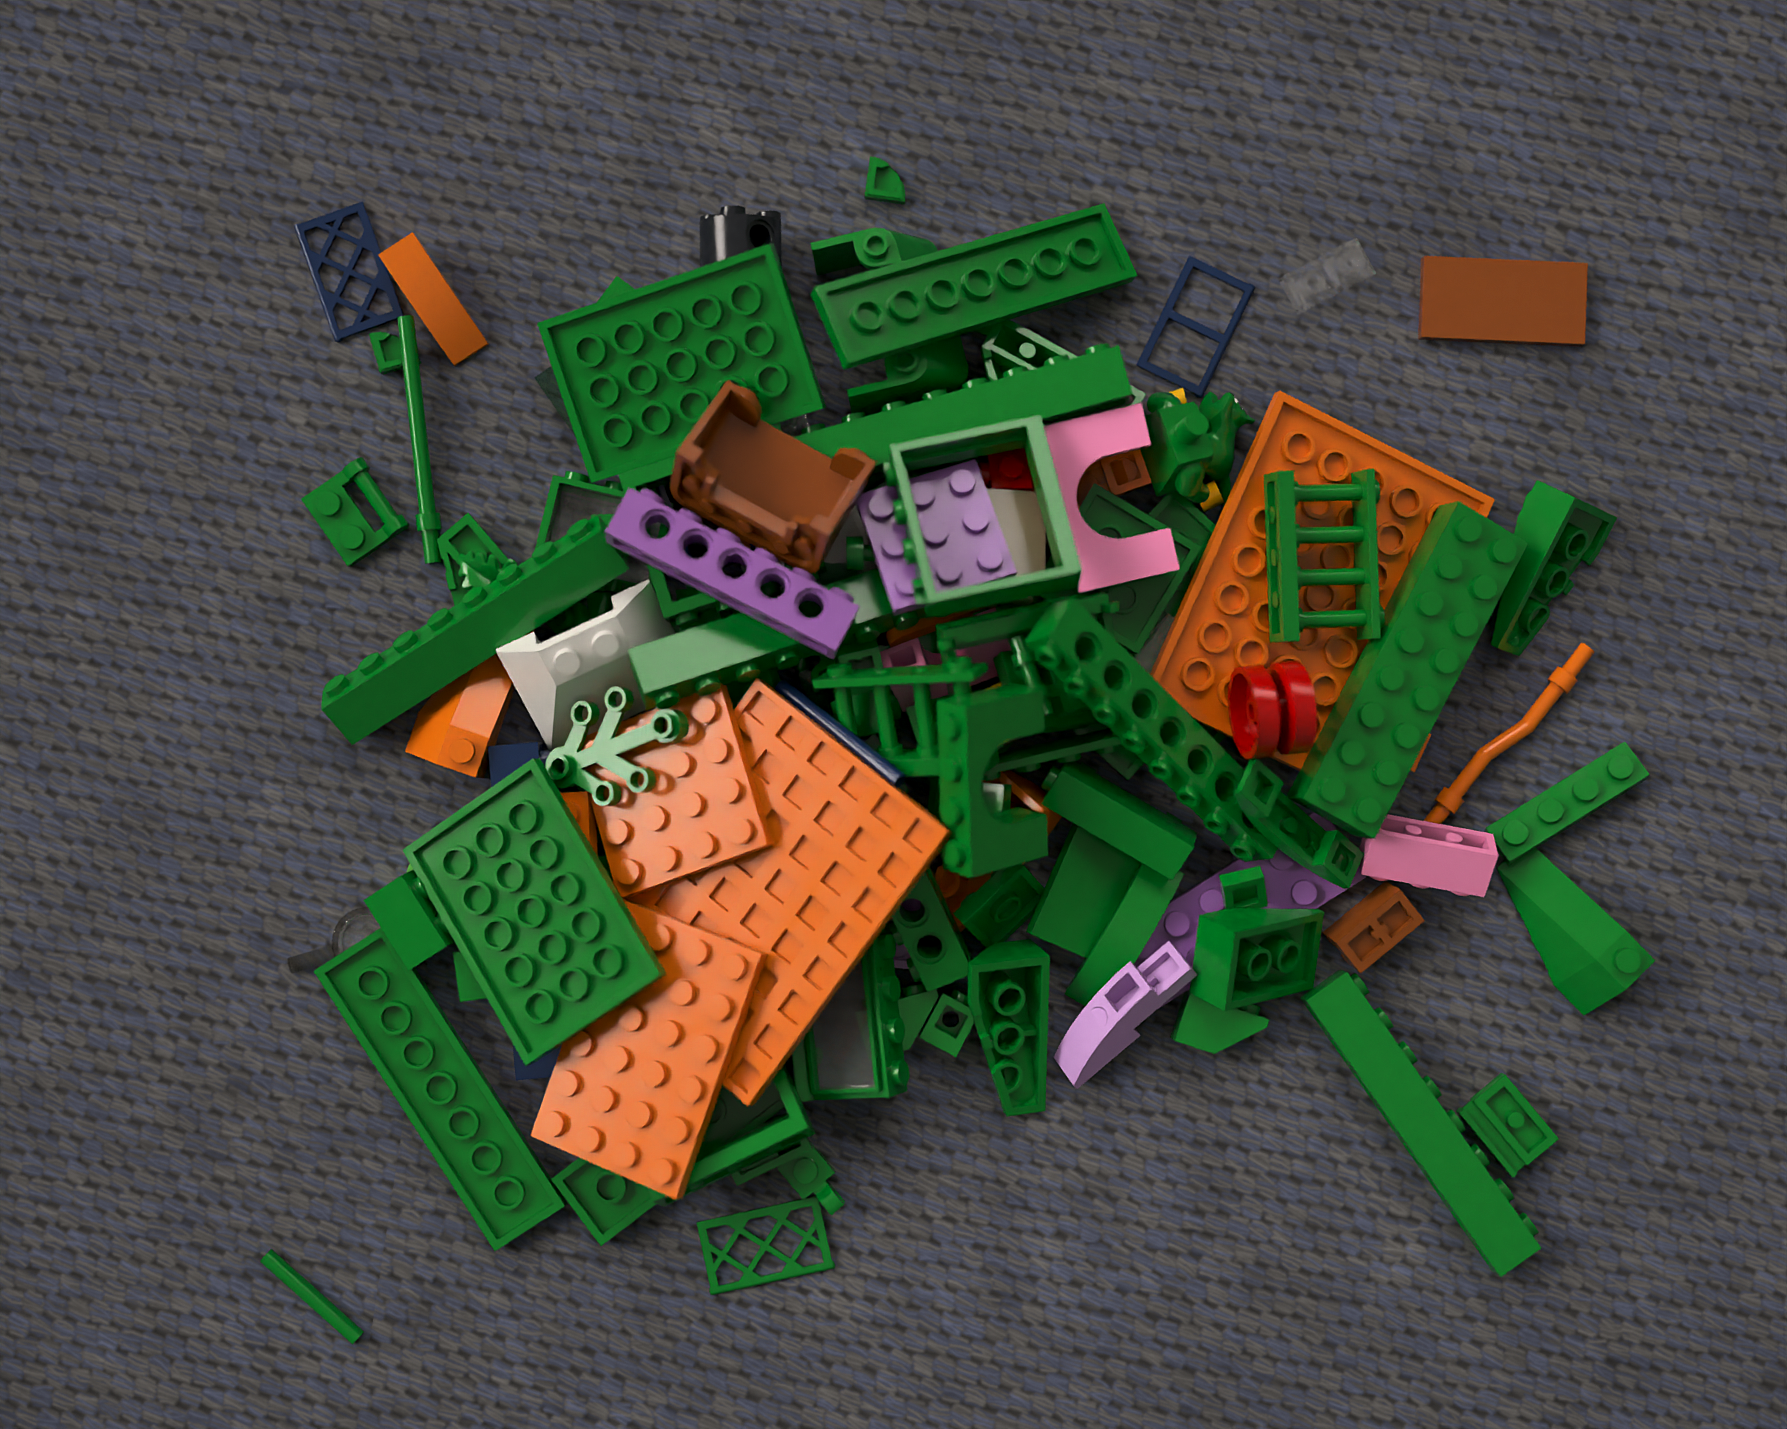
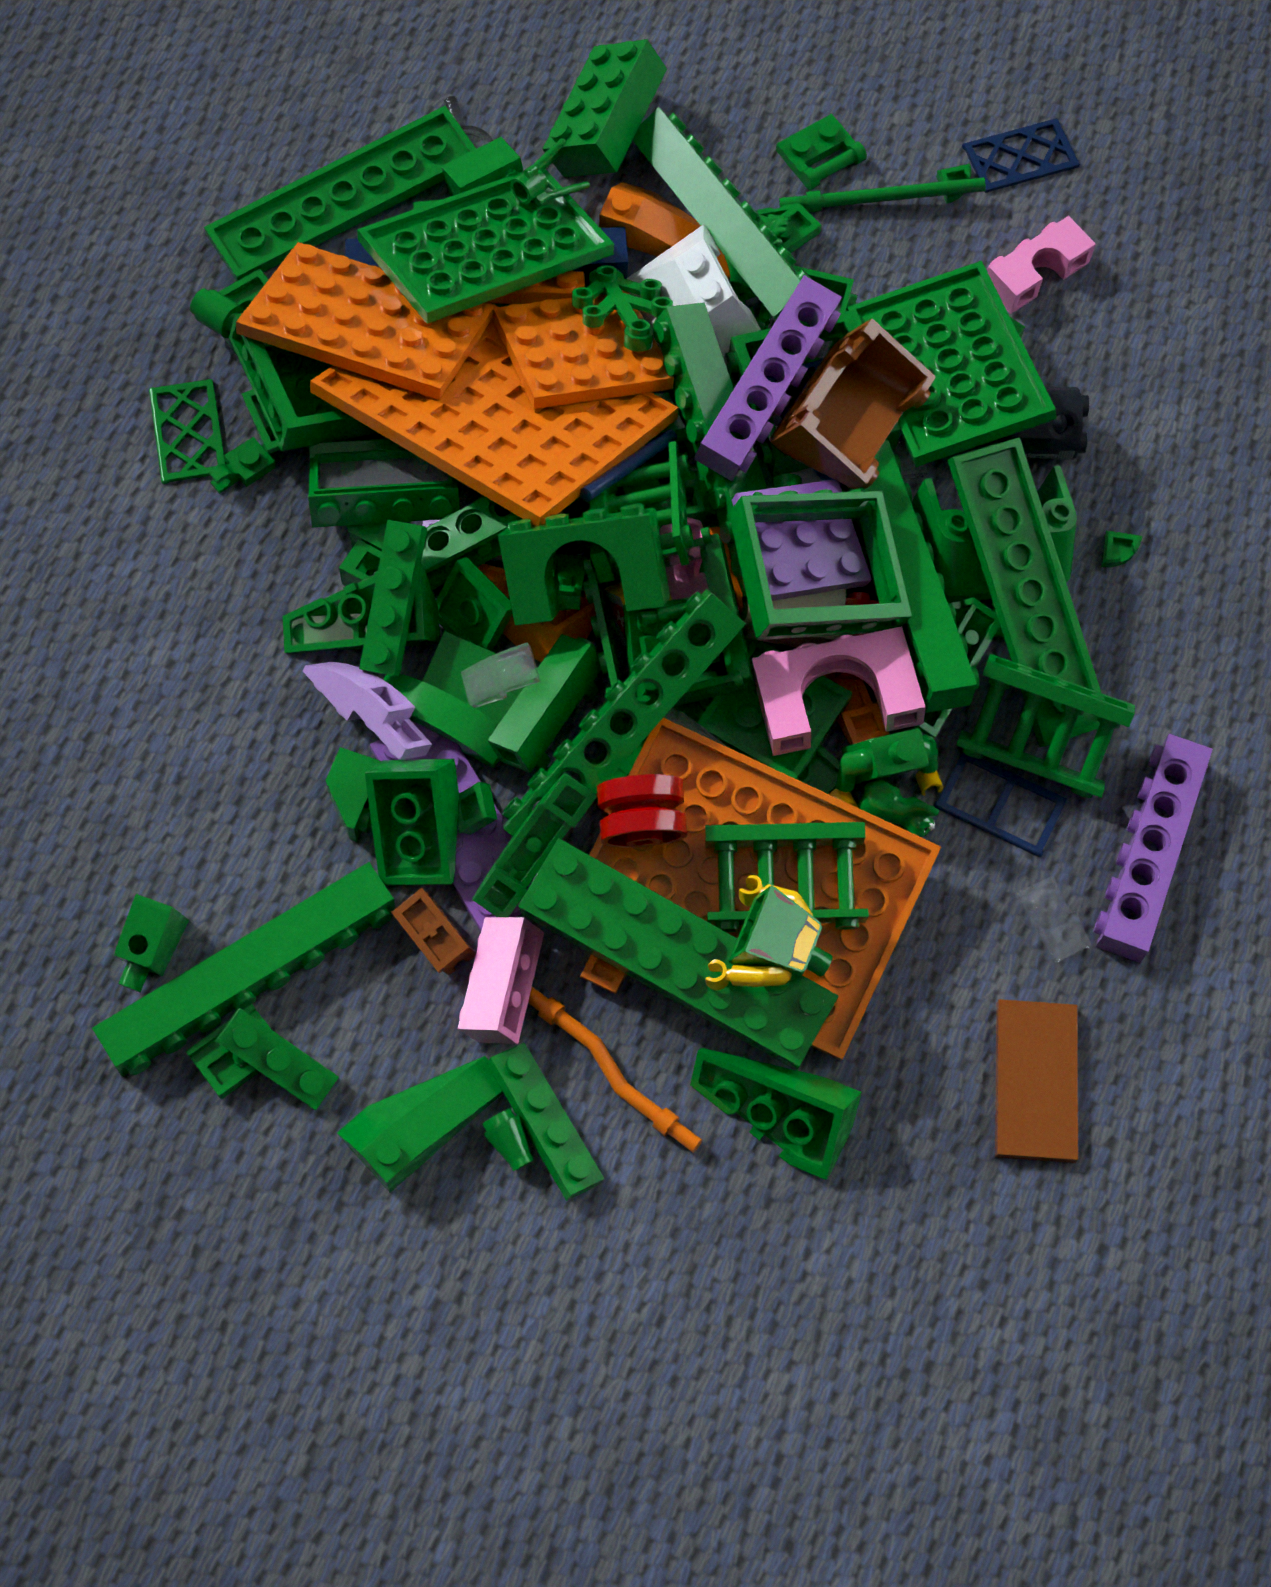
camera: 90 degrees right, 20 degrees down
(312, 1296) = (180, 107): green bar -> none
(316, 774) = (606, 108): none -> green brick
(433, 299) = (1001, 205): orange slope -> none
(448, 860) = (532, 182): none -> green plant
(490, 228) = (1059, 247): none -> bright pink arch
(626, 1223) = (214, 311): none -> green brick
(1007, 992) = (393, 598): none -> green plate
(1093, 869) = (500, 673): none -> clear slope
(1095, 262) = (1074, 701): none -> green fence
(1349, 187) = (1188, 764): none -> medium lavender brick
(1397, 1227) = (153, 926): none -> green torso
(1419, 566) = (774, 940): none -> torso
(1521, 1082) = (277, 1058): none -> green plate
(1587, 840) = (508, 1138): none -> green cone

